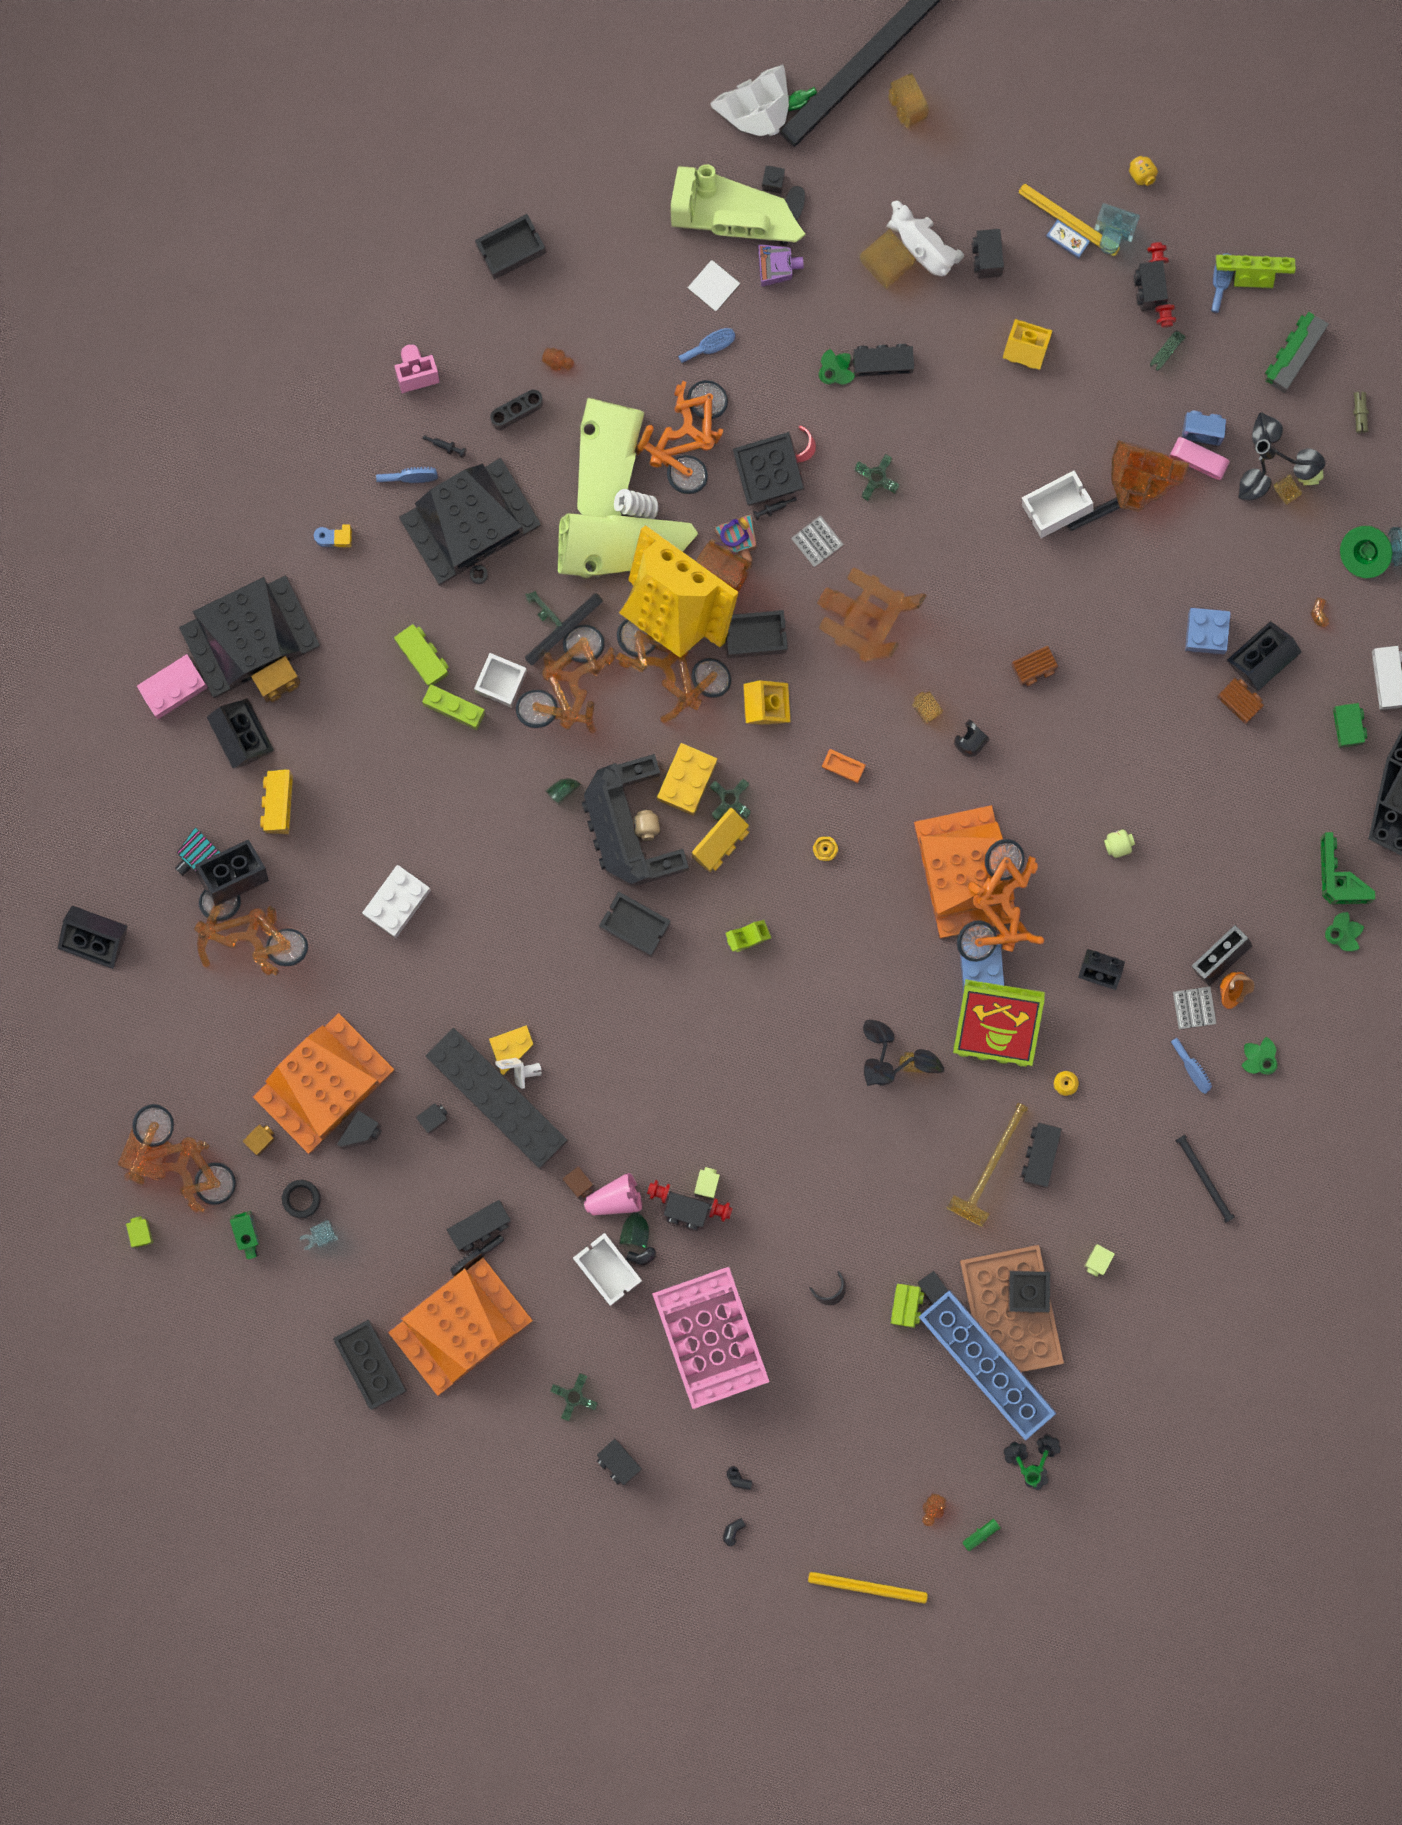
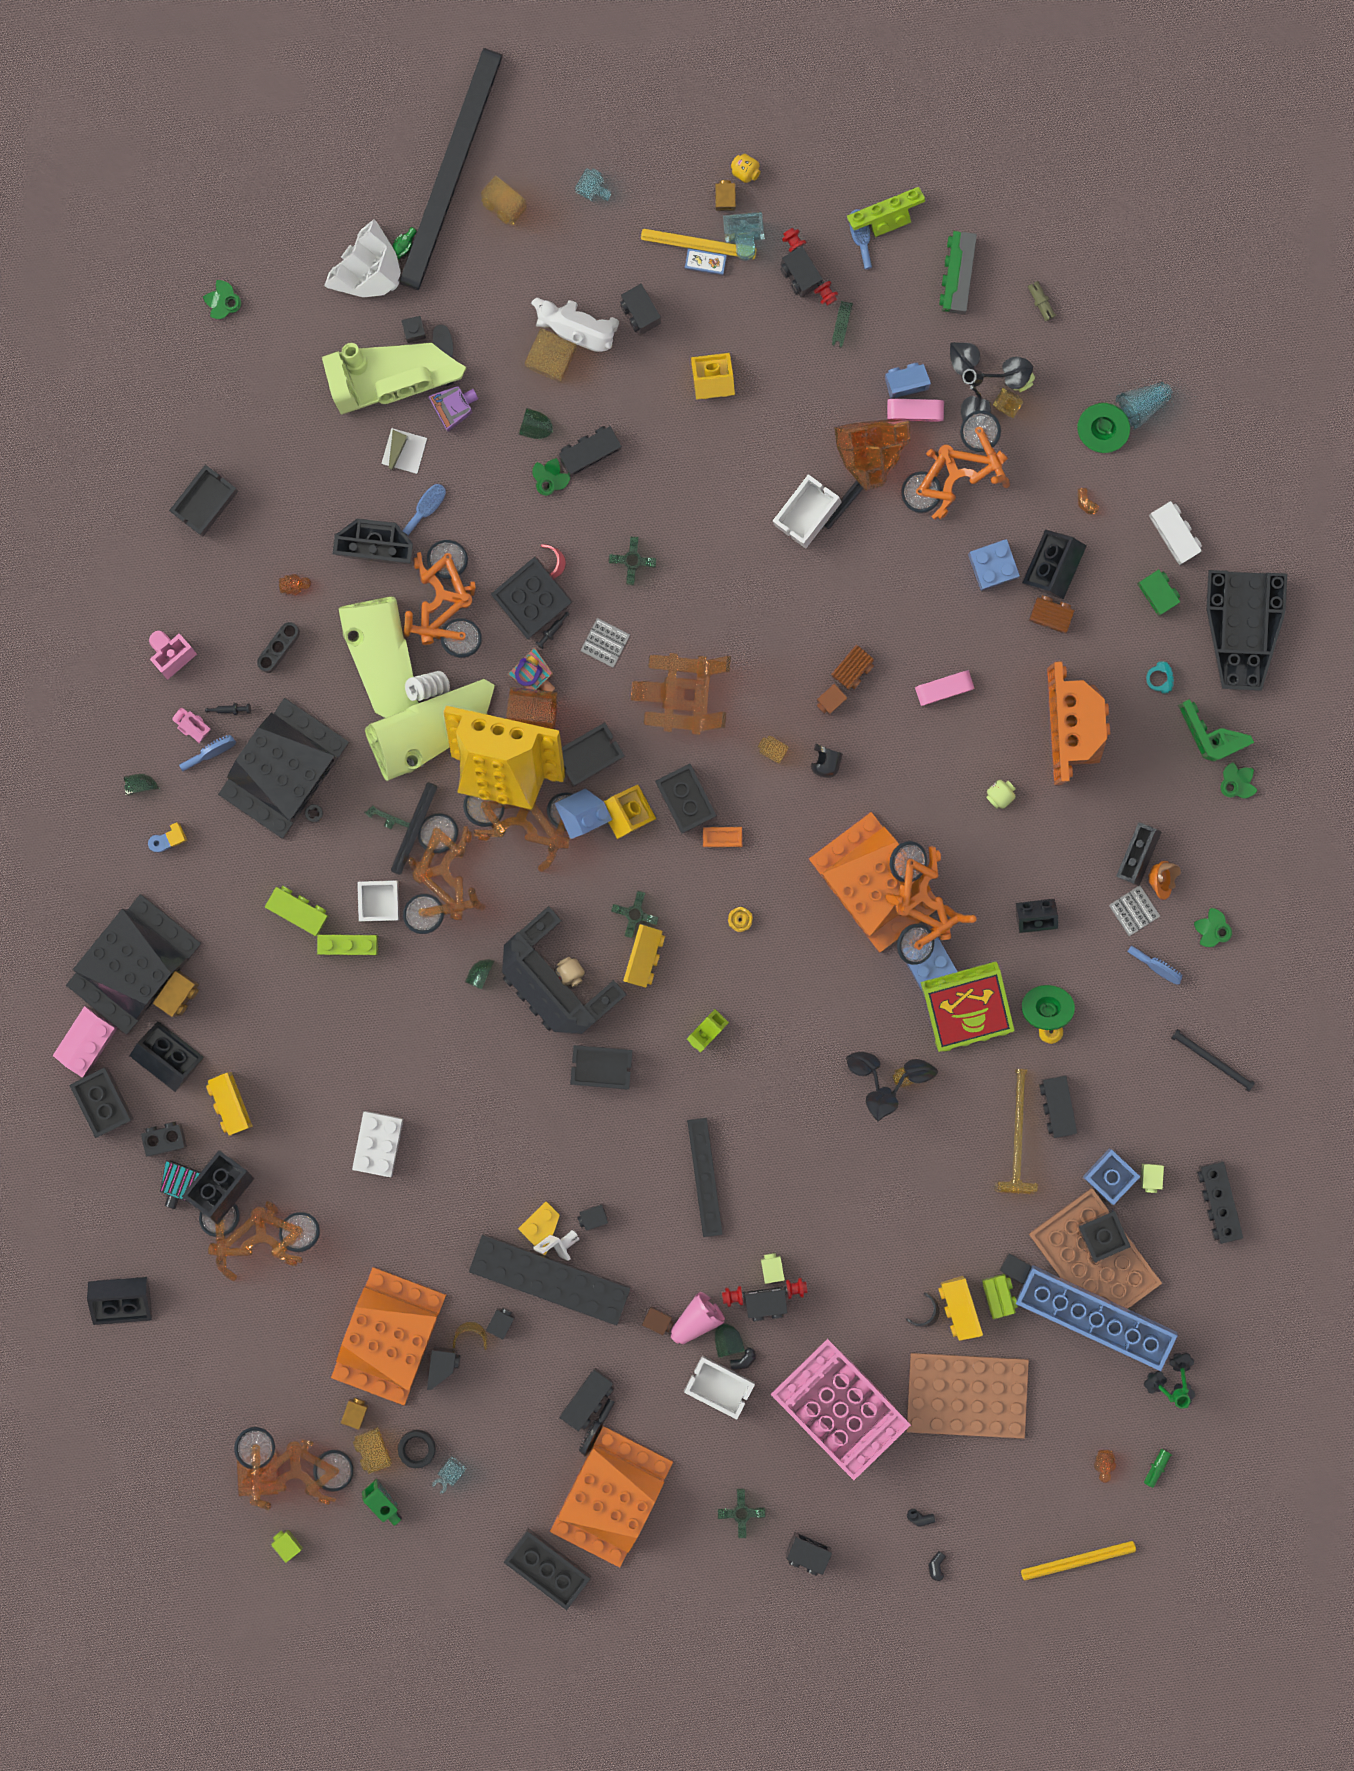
camera: 25 degrees left, 5 degrees up
(161, 747) = (101, 1102): none -> black brick
(200, 812) = (164, 1143): none -> black brick
(260, 1181) = (372, 1450): none -> clear yellow brick
(331, 475) = (139, 783): none -> clear green brick
(404, 443) = (191, 725): none -> bright pink piece
(404, 1109) = (471, 1326): none -> clear yellow helmet
(563, 1060) = (592, 1217): none -> black brick
(609, 75) = (220, 298): none -> green plate
(647, 353) = (373, 542): none -> black wedge
(683, 1070) = (704, 1177): none -> black plate
(687, 779) = (587, 913): yellow brick -> none
(710, 276) = (397, 444): none -> olive piece
(724, 684) = (582, 812): none -> medium blue slope
(826, 714) = (685, 798): none -> black brick
(834, 1385) = (967, 1395): none -> nougat plate
(844, 315) = (535, 425): none -> clear green brick
(864, 1300) = (960, 1308): none -> yellow slope
(994, 123) = (590, 185): none -> clear light blue brick
(1001, 686) = (831, 699): none -> dark orange brick
(1061, 1241) = (1111, 1176): none -> medium blue brick
(1073, 1058) = (1048, 1007): none -> green hat
(1111, 723) = (944, 688): none -> bright pink beam
(1113, 187) = (725, 195): none -> pearl gold brick
(1152, 1313) = (1220, 1201): none -> black brick
(1218, 807) = (1076, 722): none -> orange wedge
(1248, 504) = (979, 433): none -> piece
(1316, 815) = (1163, 667): none -> teal piece

